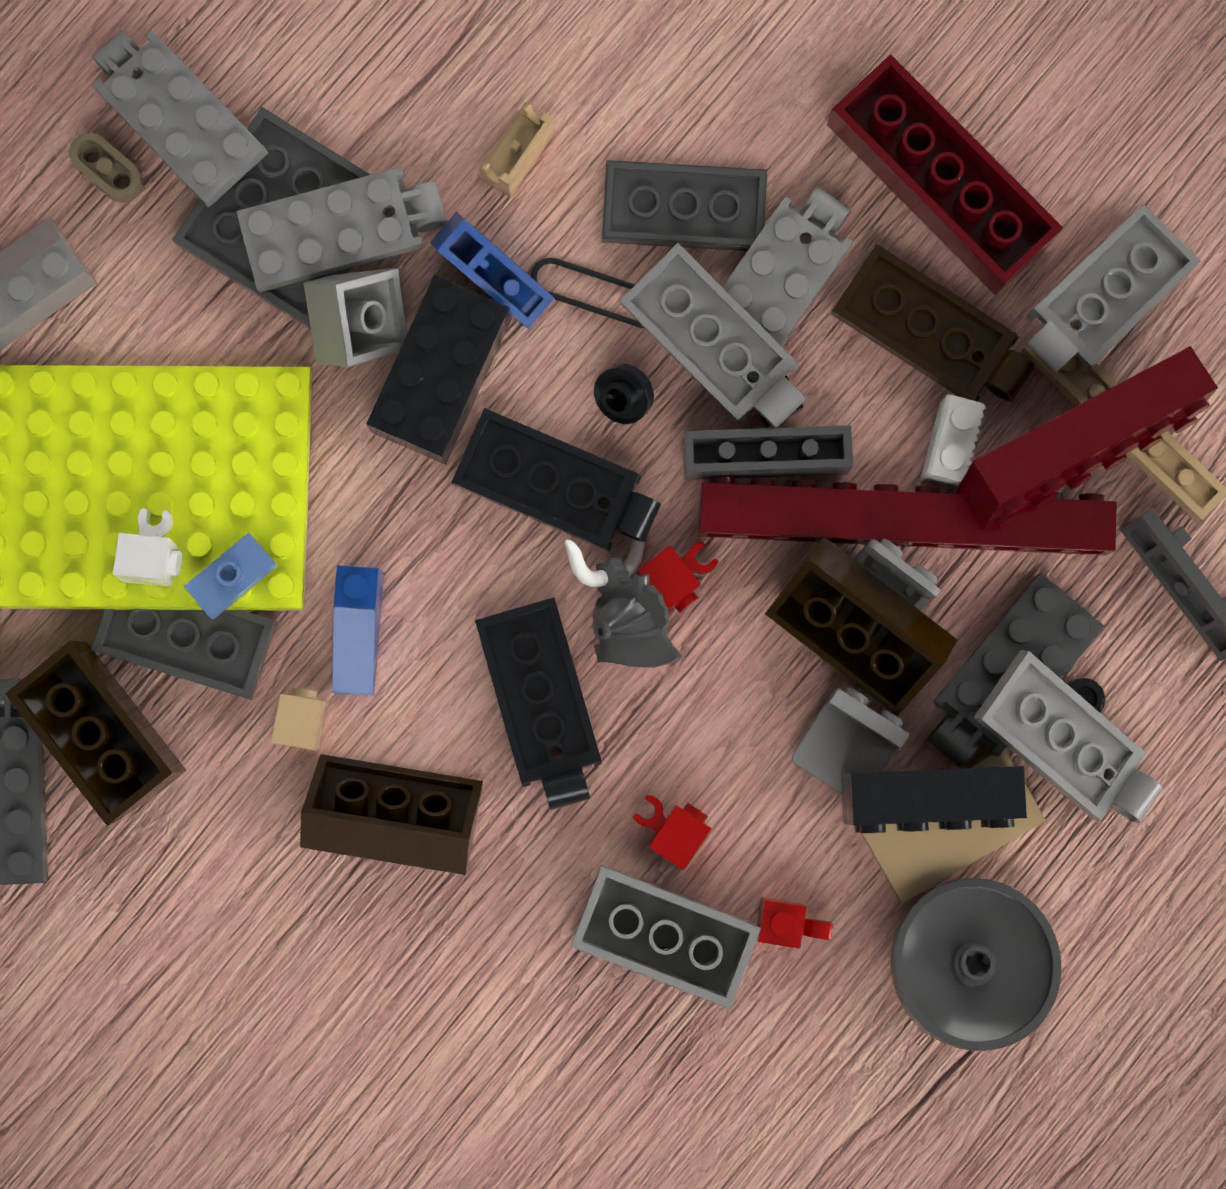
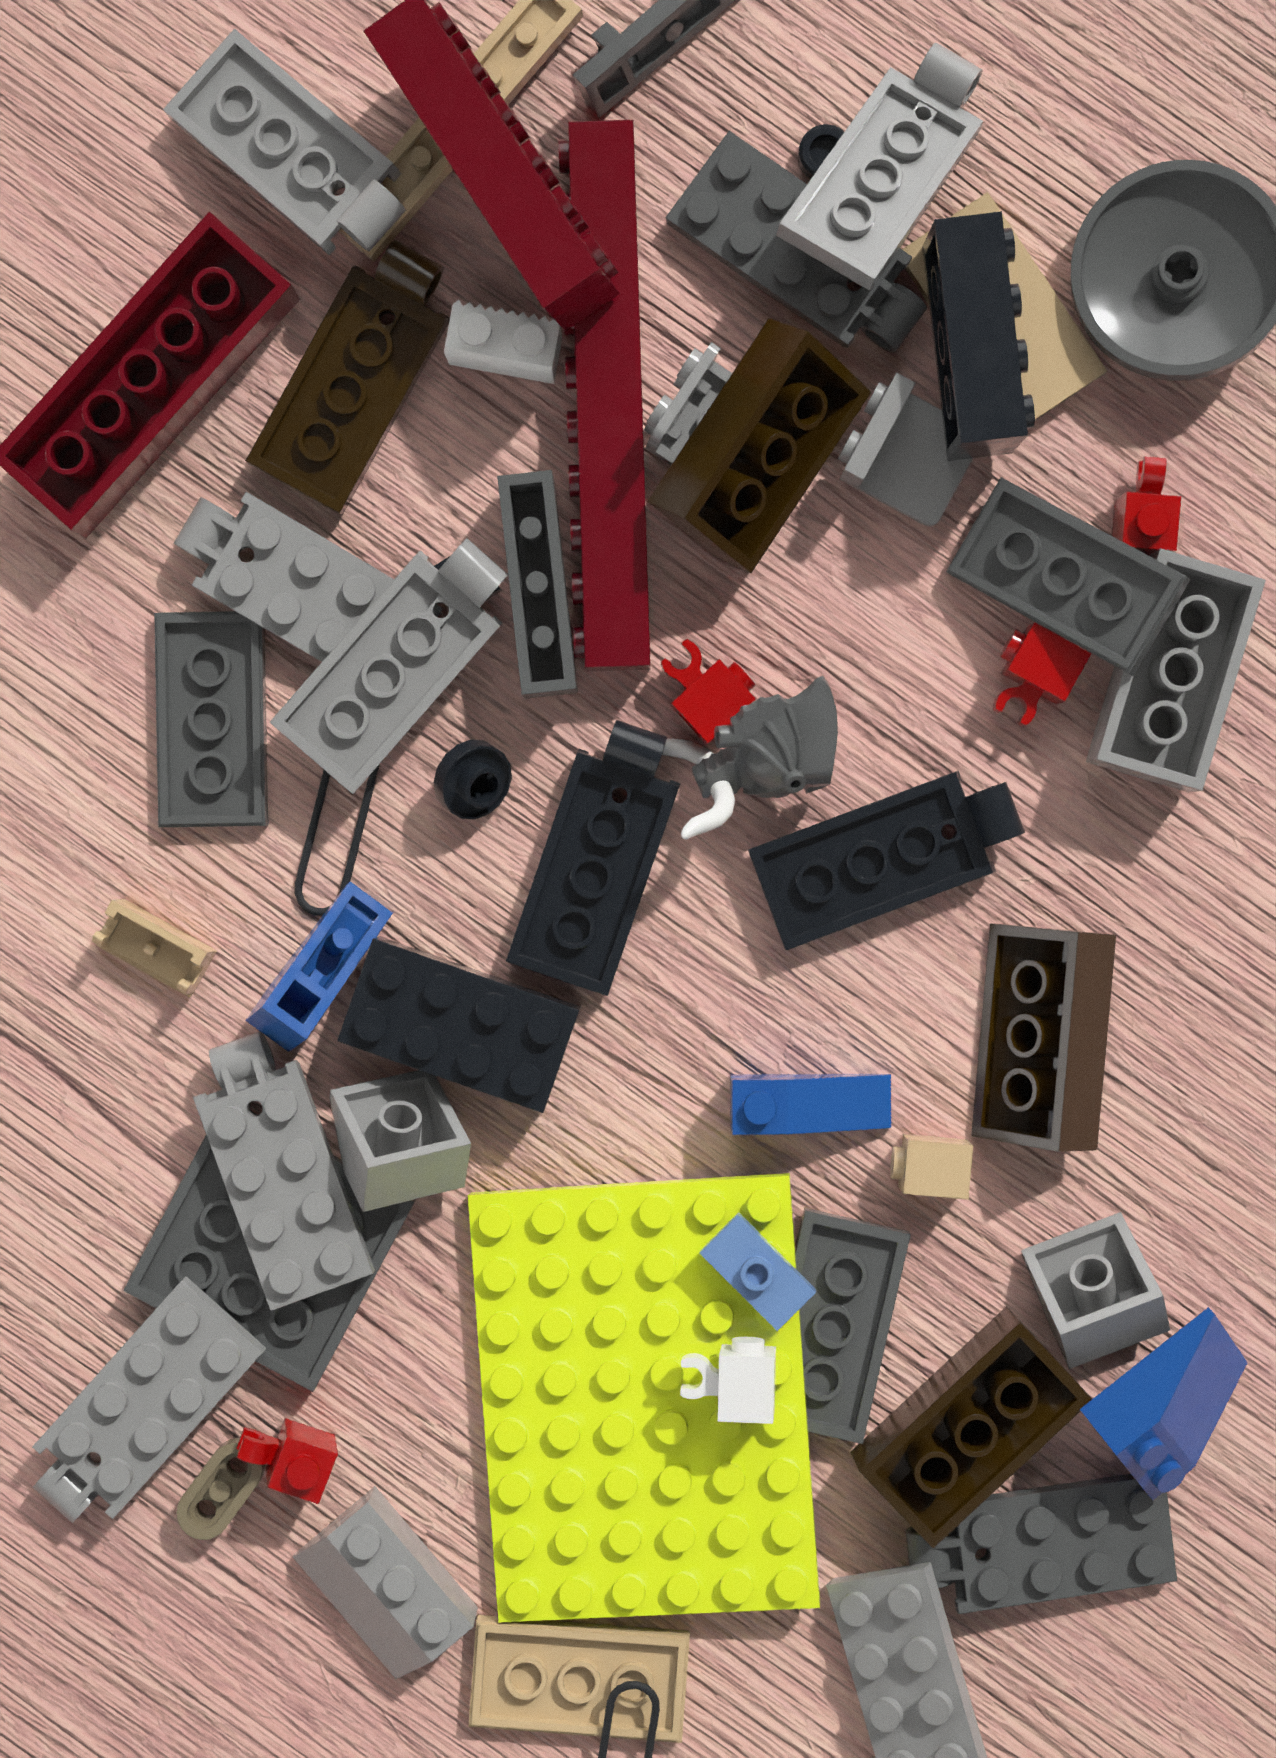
camera: 90 degrees left, 5 degrees up
(97, 886) = (1169, 1403): none -> blue slope
(122, 223) = (295, 1460): none -> red brick
(191, 839) = (1096, 1290): none -> light grey slope
(744, 856) = (1068, 576): none -> dark grey tile

